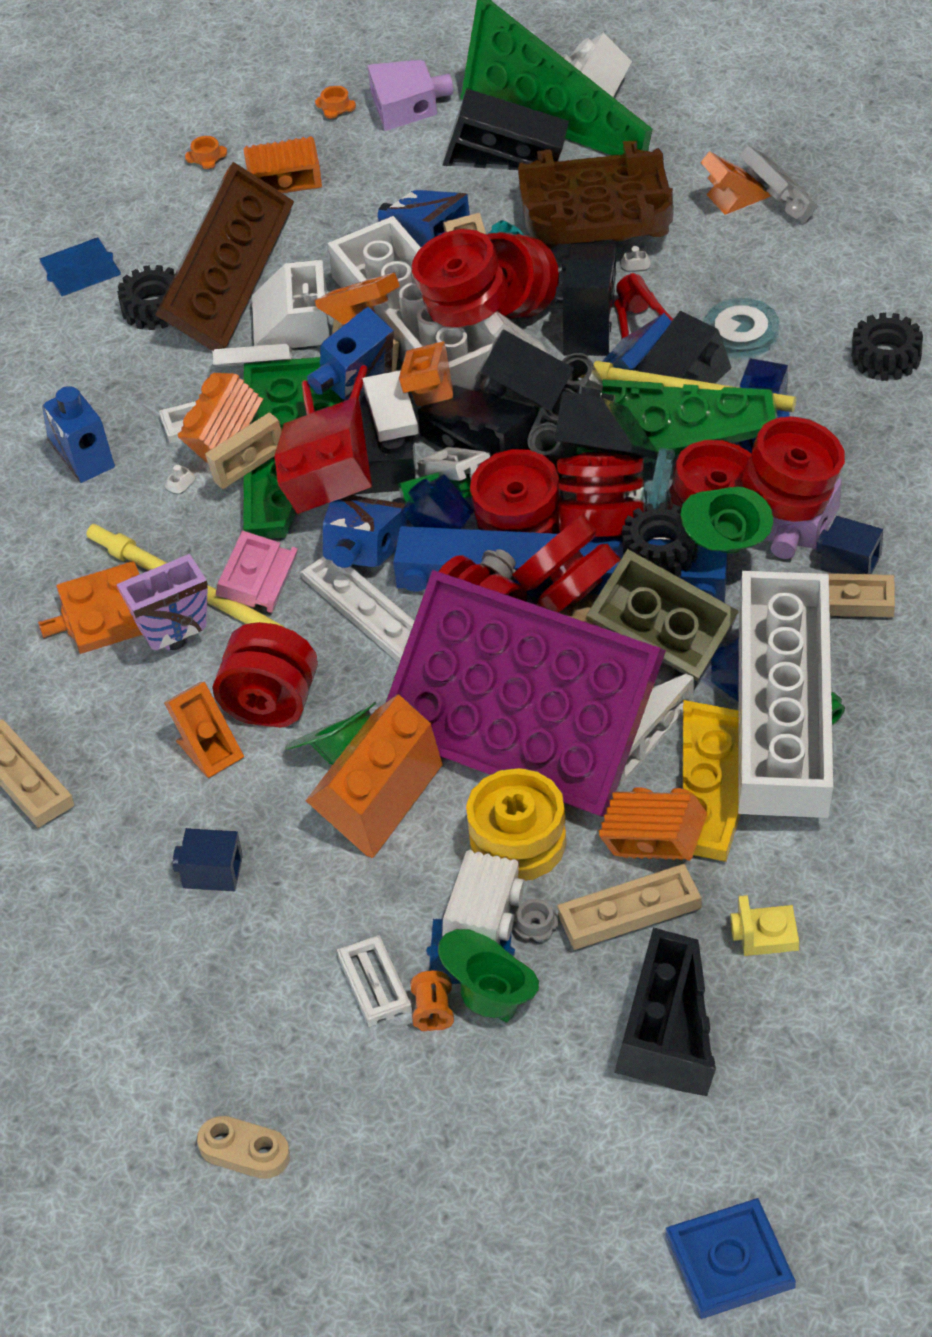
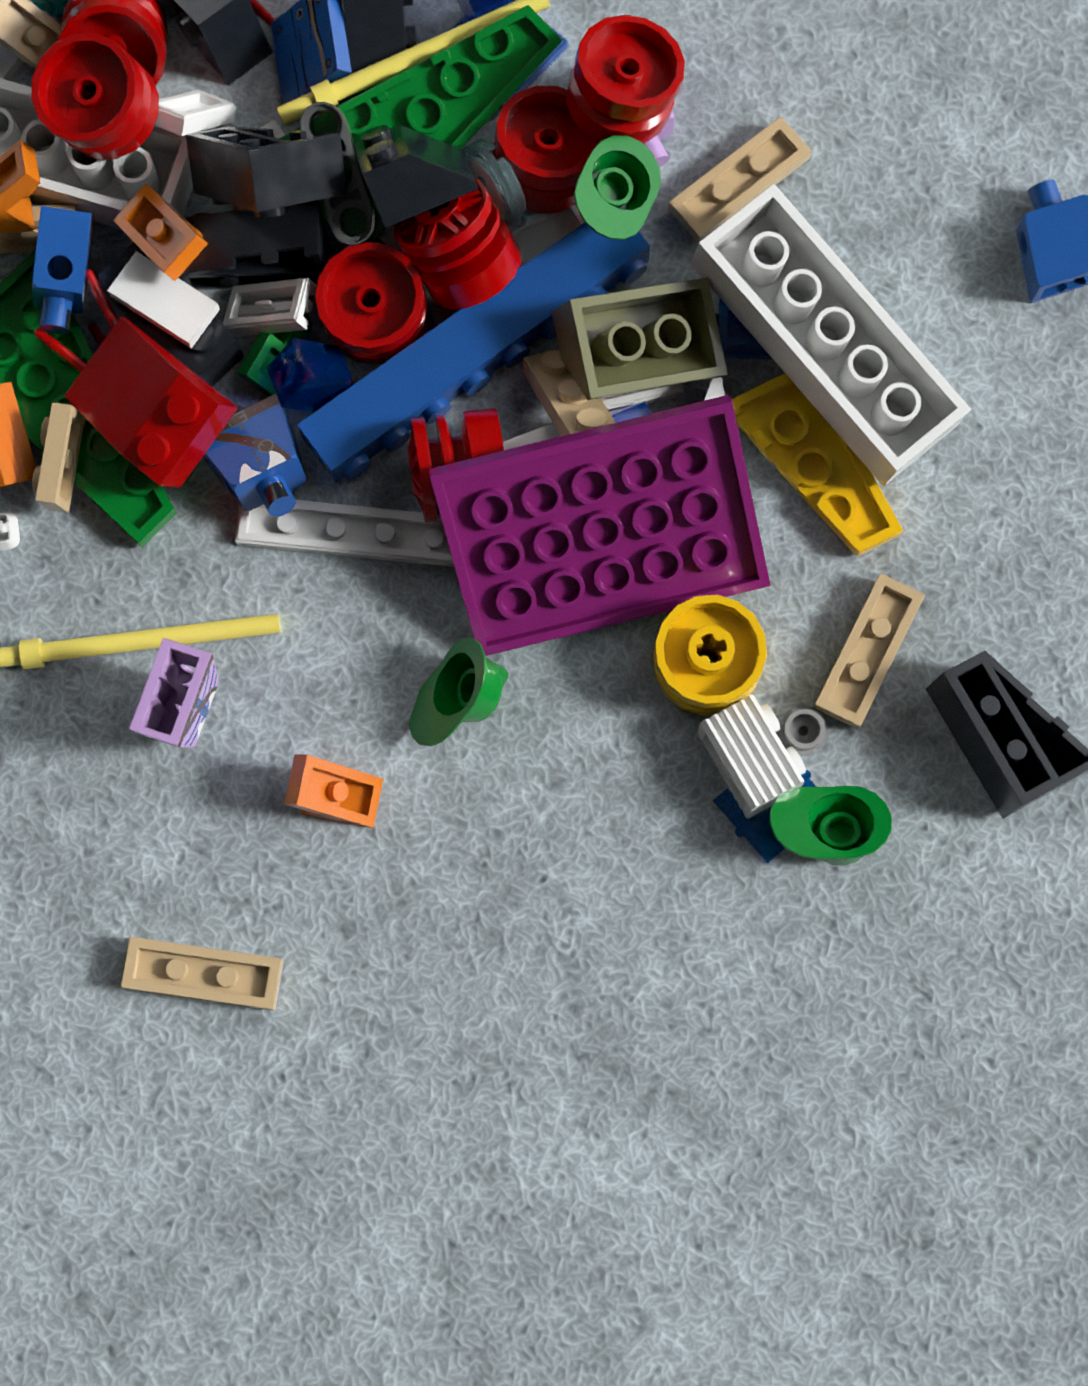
camera: 45 degrees left, 30 degrees up
(94, 609) = (87, 732): orange plate -> none
(208, 859) = (471, 915): dark blue brick -> none
(241, 1145) = (774, 1149): tan plate -> none
(256, 571) = (196, 577): bright pink plate -> none
(265, 675) = (341, 692): red wheel -> none
(378, 775) = (541, 711): orange slope -> none
(385, 1009) = (763, 921): white tile -> none
(432, 1001) = (798, 884): orange bush -> none
(499, 563) = (443, 400): light grey plate -> none
(567, 567) = (523, 359): red wheel -> none
(653, 824) = (826, 557): orange brick -> none
(660, 524) = (557, 282): black tyre -> none
(764, 929) = (994, 577): light yellow bracket -> none
(850, 547) = (715, 115): dark blue brick -> none

